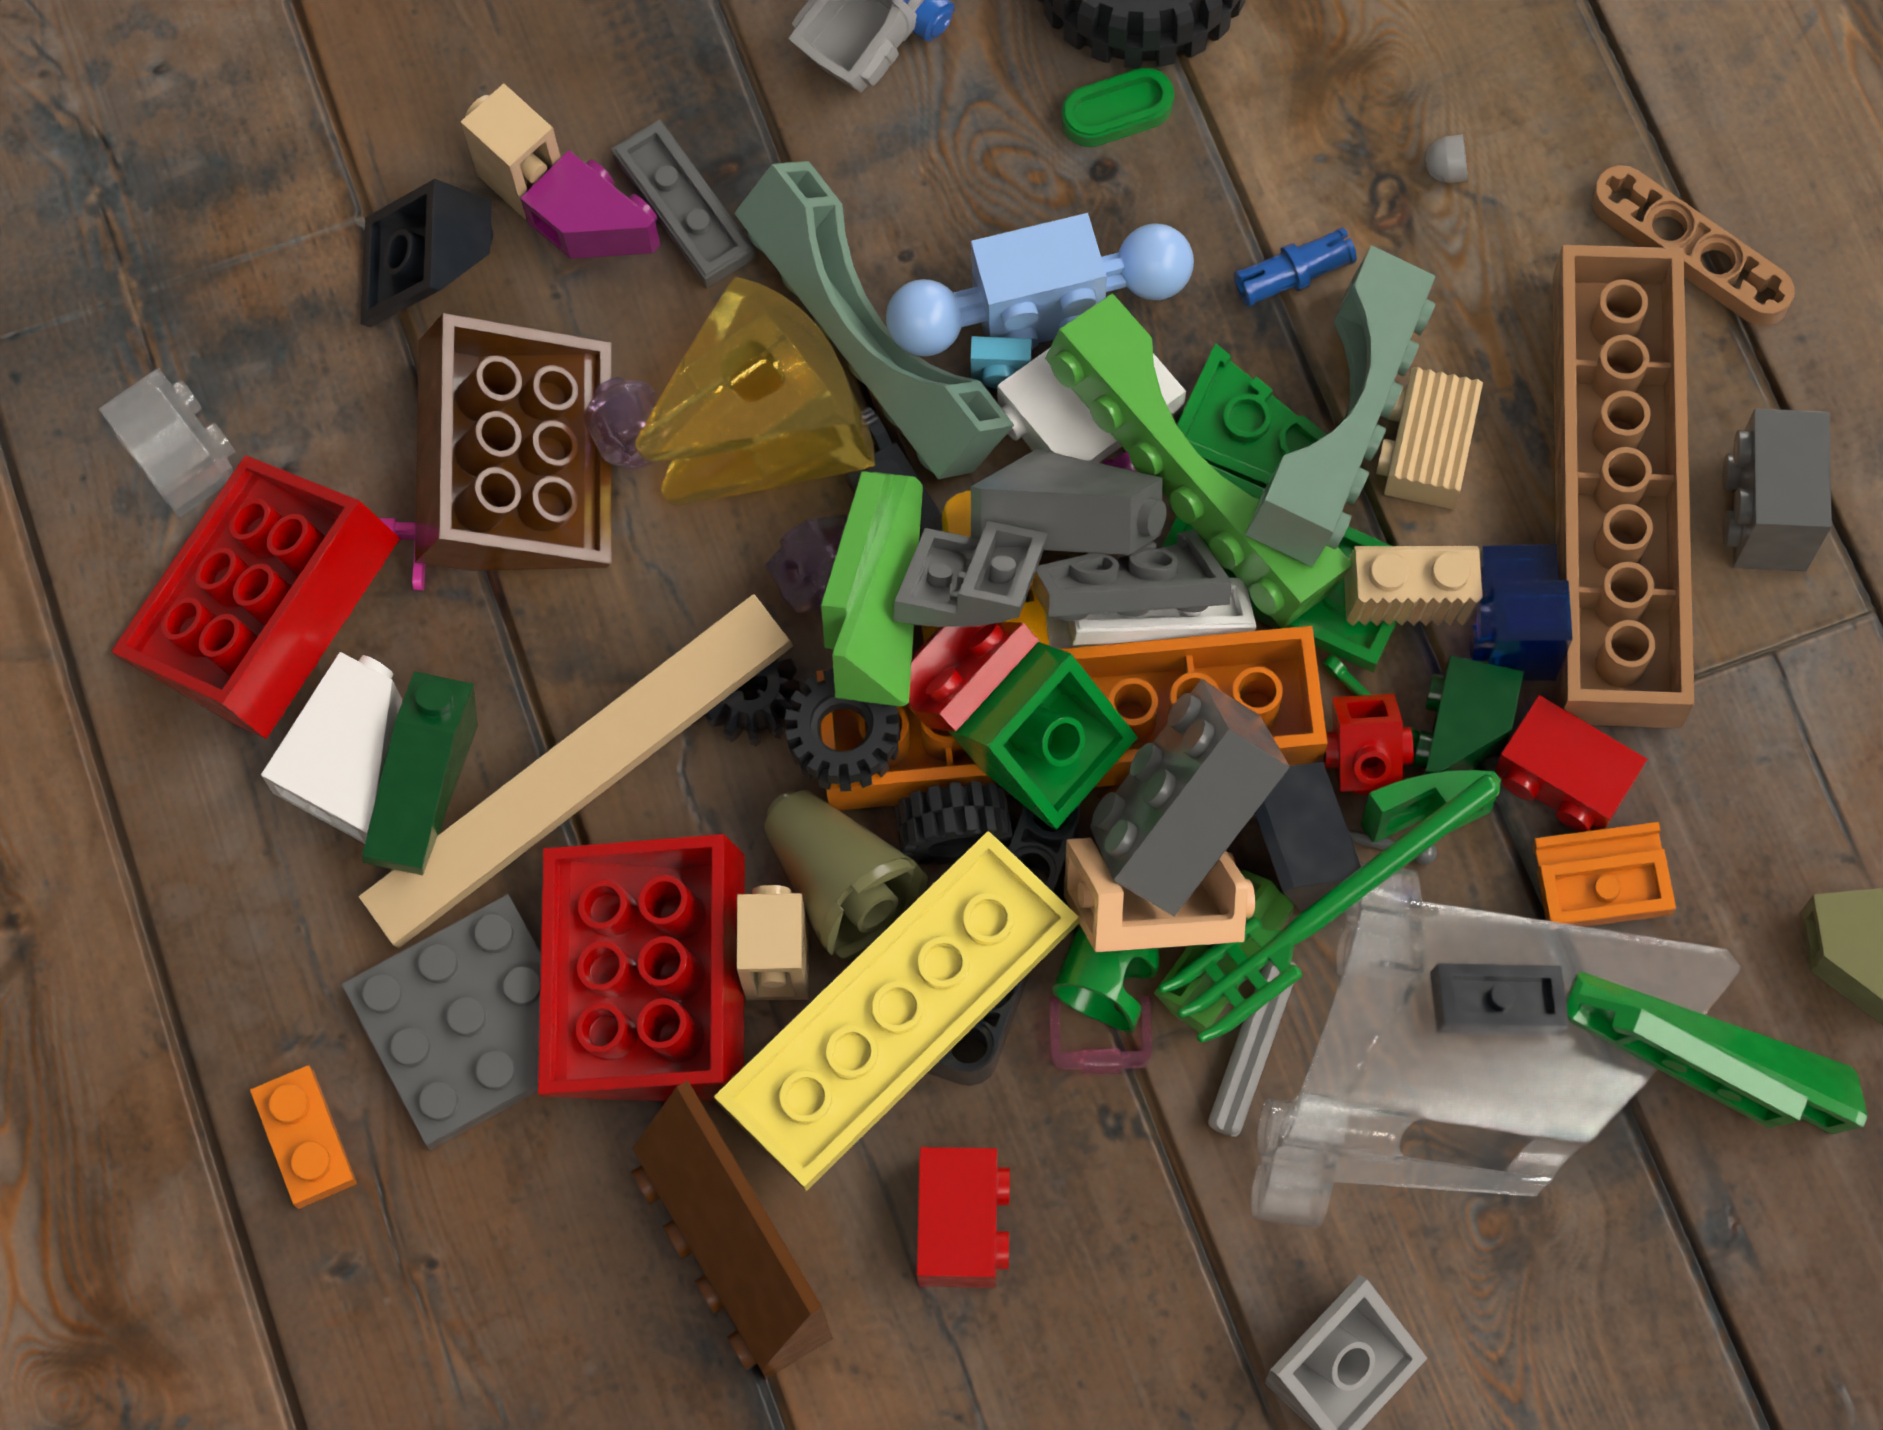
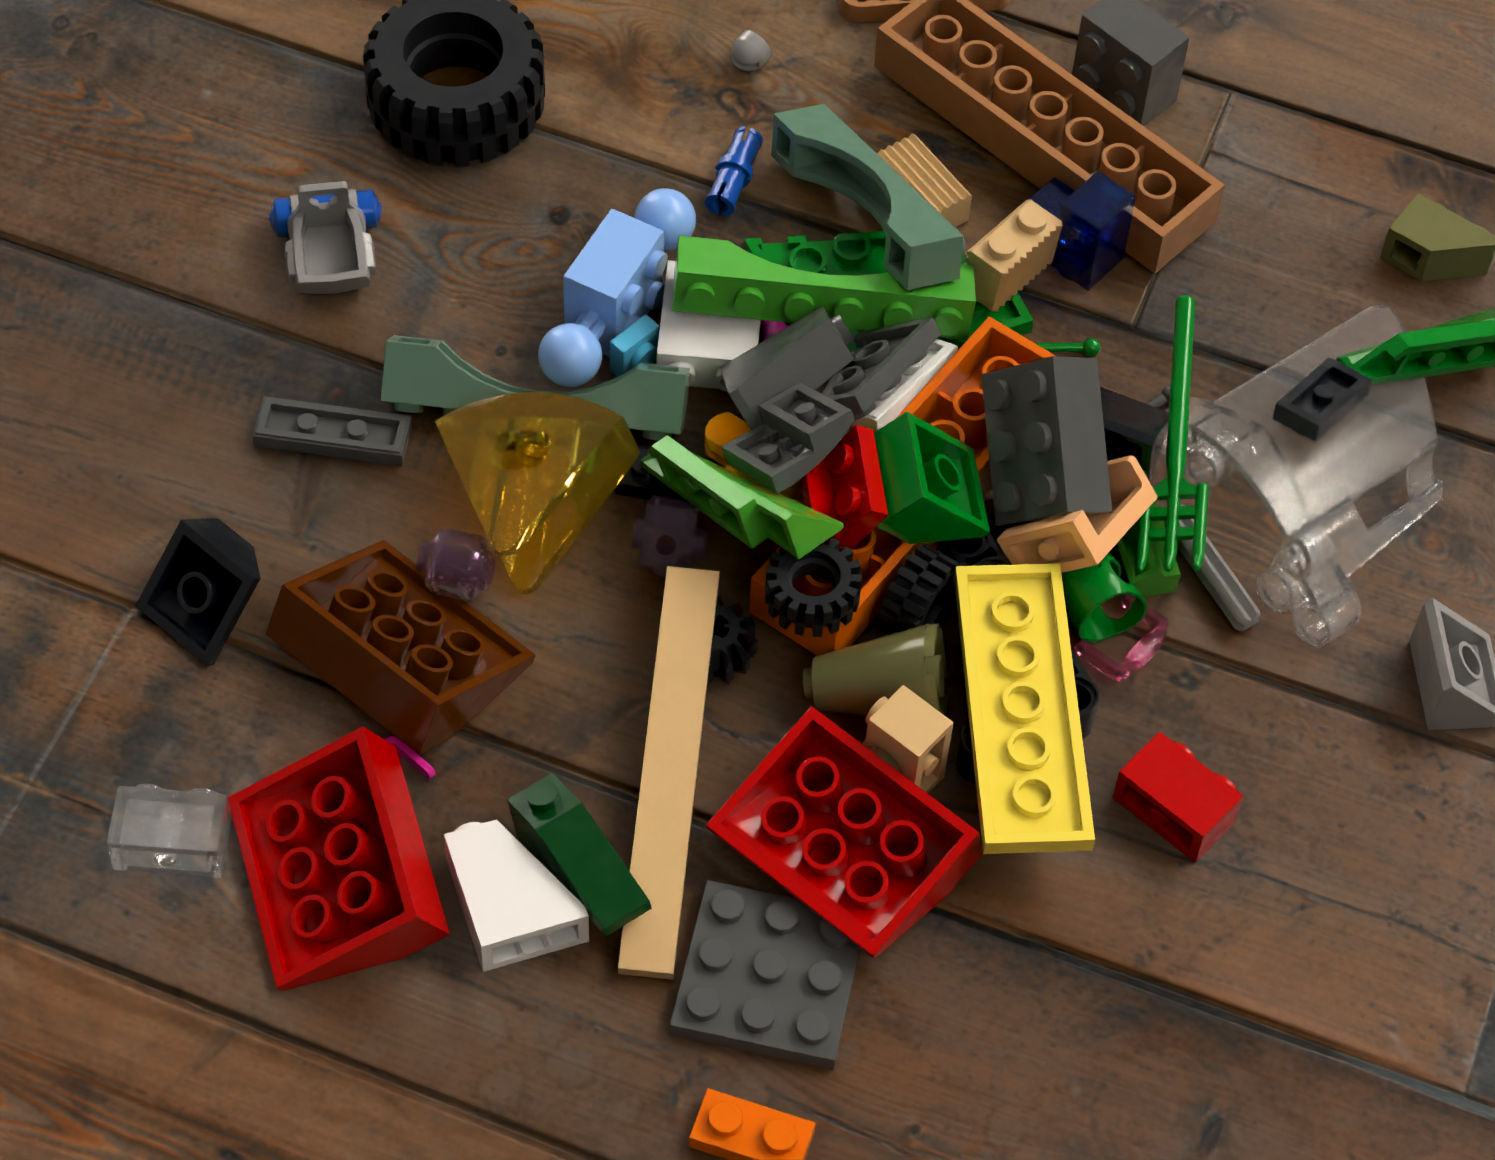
camera: 55 degrees left, 15 degrees down
(509, 144) = (201, 472): tan brick -> none
(586, 214) = (287, 477): magenta slope -> none
(729, 1236) = (1084, 906): reddish brown slope -> none
(1117, 107) = (529, 175): green tile -> none
(1367, 743) = (1087, 340): red brick -> none
(1415, 799) = (1149, 357): green slope -> none
(1472, 717) = (1110, 304): dark green slope -> none
(1568, 767) = (1203, 270): red brick -> none
(1604, 876) = (1273, 320): orange plate -> none

